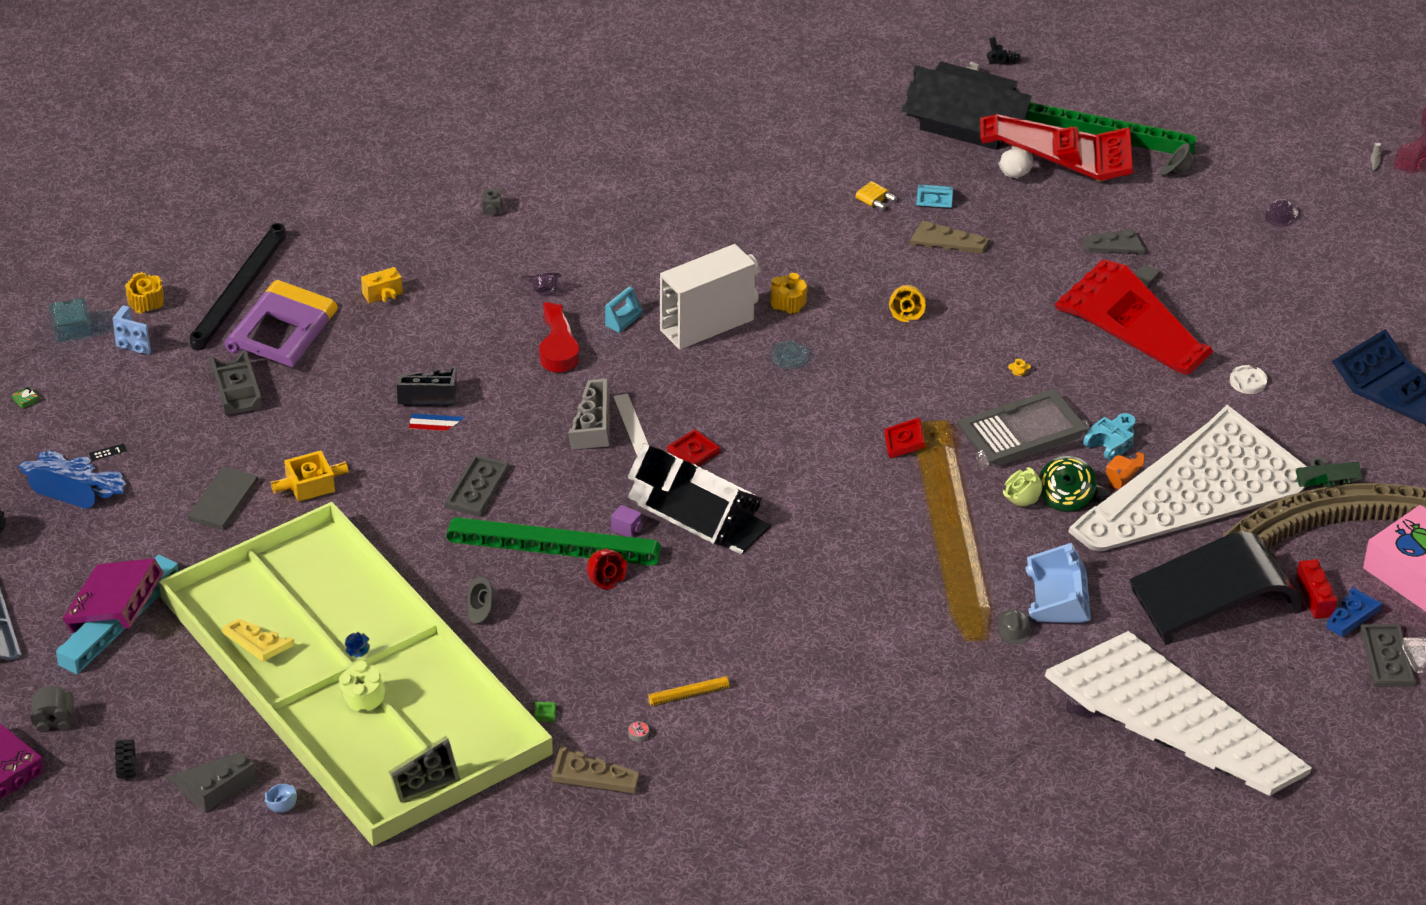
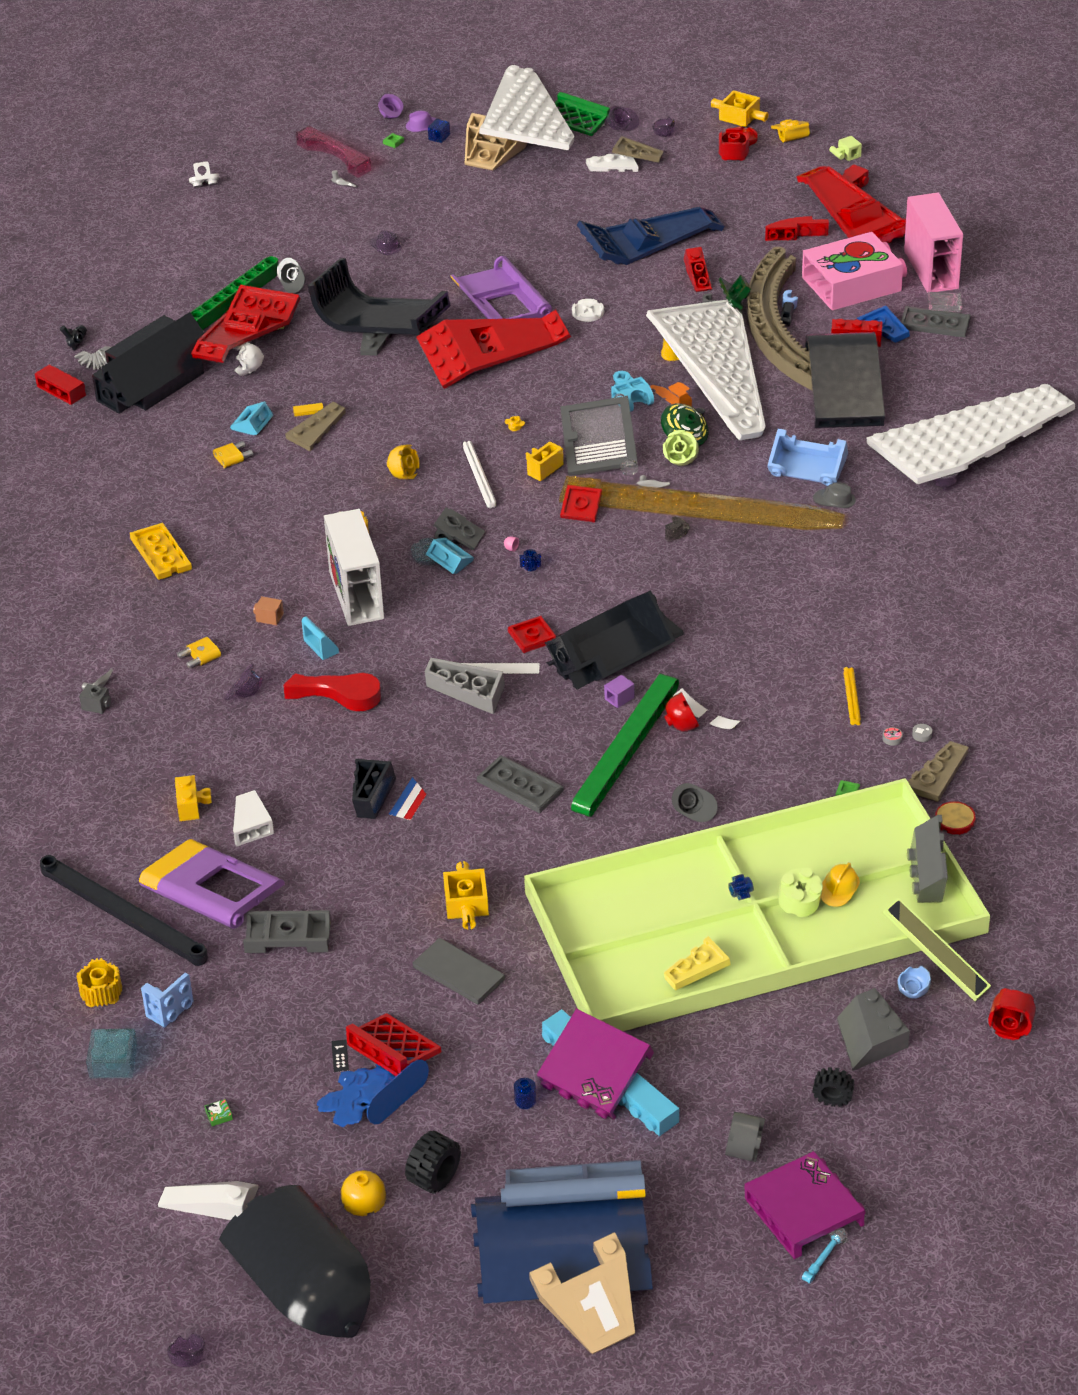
camera: 70 degrees left, 0 degrees up
(77, 564) = (525, 1093): none -> clear blue brick
(105, 464) = (383, 1052): none -> red fence
(250, 871) = (1012, 1014): none -> red brick
(316, 799) = (936, 949): none -> tile
(370, 328) = (251, 819): none -> white slope
(391, 718) = (839, 885): none -> yellow piece
(518, 201) = (101, 681): none -> light grey bar
(531, 797) = (956, 817): none -> pearl gold tile
(582, 248) = (202, 652): none -> yellow piece
(629, 584) = (699, 710): none -> white sticker
(651, 272) = (268, 610): none -> nougat brick
(652, 753) = (922, 732): none -> light grey tile
(709, 188) = (160, 551): none -> yellow piece
(770, 371) = (449, 555): none -> medium azure tile
(799, 421) = (530, 560): none -> clear blue gear
(822, 405) = (511, 543): none -> bright pink hinge
(824, 362) = (457, 527): none -> dark grey piece
(896, 513) = (676, 529): none -> clear smoke plate
(923, 361) = (479, 474): none -> white axle
(927, 57) = (60, 384): none -> red brick
(956, 396) = (544, 461): none -> yellow brick
(966, 478) = (651, 483): none -> light grey bar
(971, 226) = (307, 409): none -> yellow piece
(1145, 215) = (350, 310): none -> black panel
(1244, 296) = (499, 283): none -> medium lavender piece
(1318, 70) = (198, 179): none -> white bracket
(1351, 524) = (788, 307): none -> piece
(1366, 443) = (697, 269): none -> red slope

